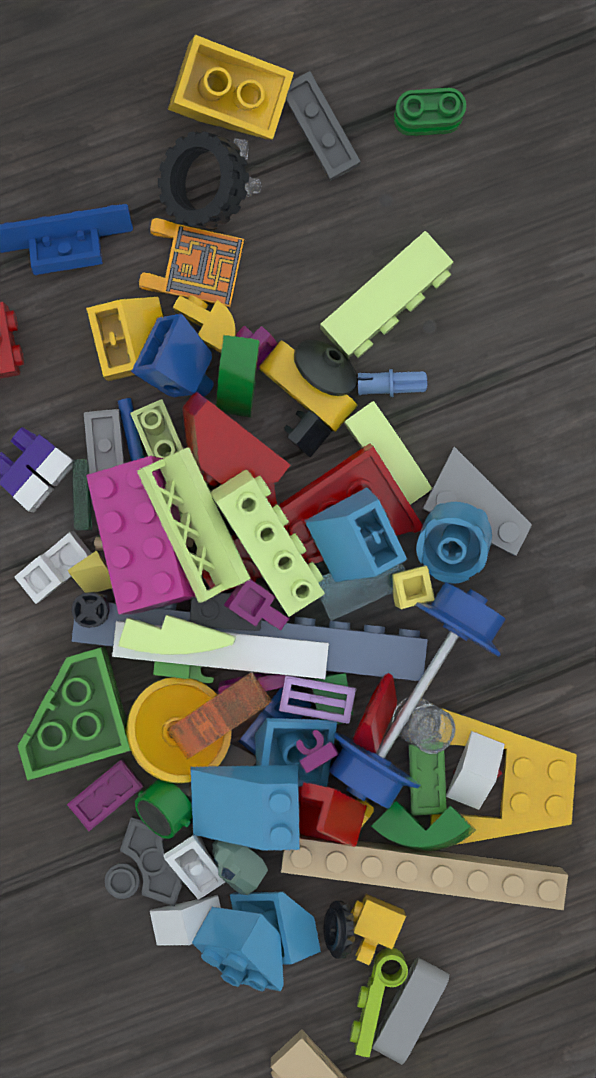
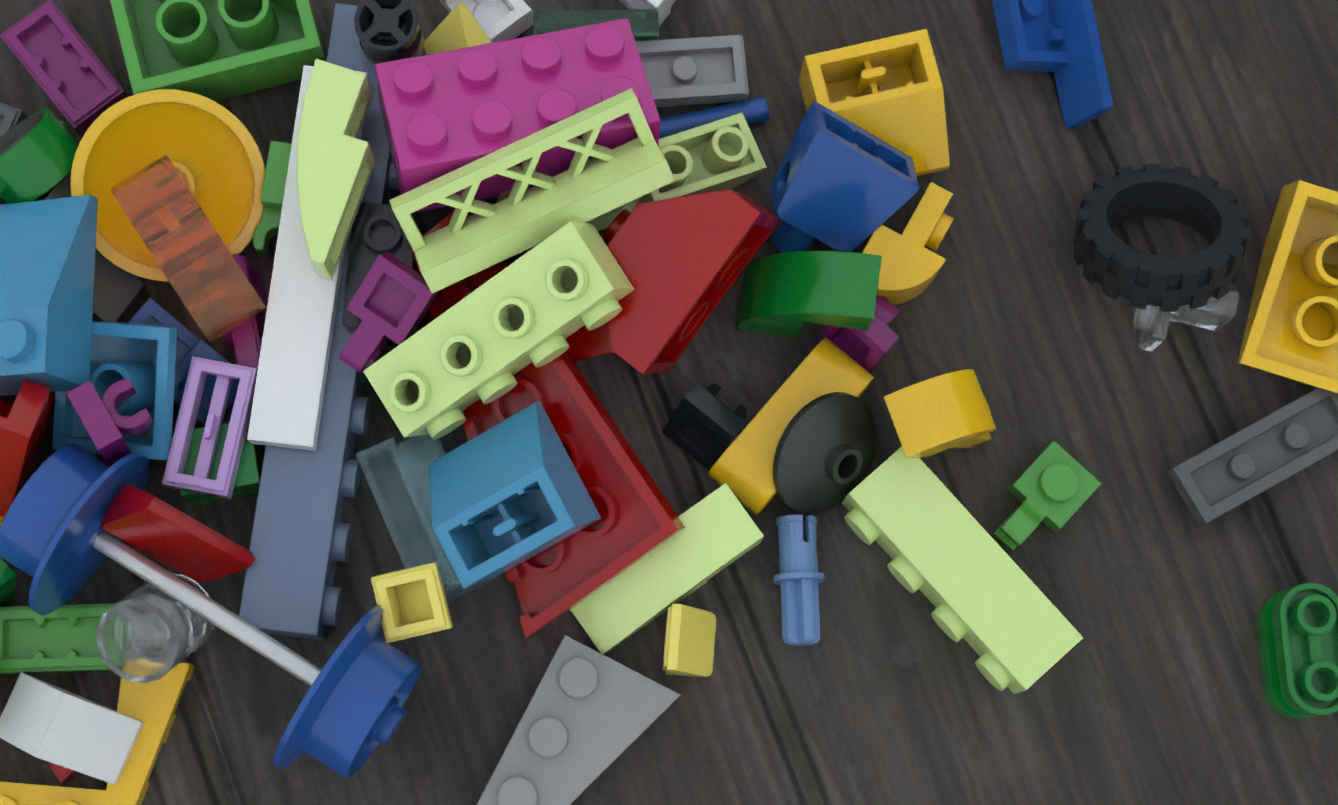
camera: 85 degrees right, 10 degrees down
(198, 263) = (1009, 239): flag -> none
(306, 304) = (941, 414): none -> yellow brick
(342, 246) = (1048, 493): none -> bright green plate
(425, 442) = (689, 641): none -> light yellow slope
(456, 523) = (498, 687): dark azure brick -> none

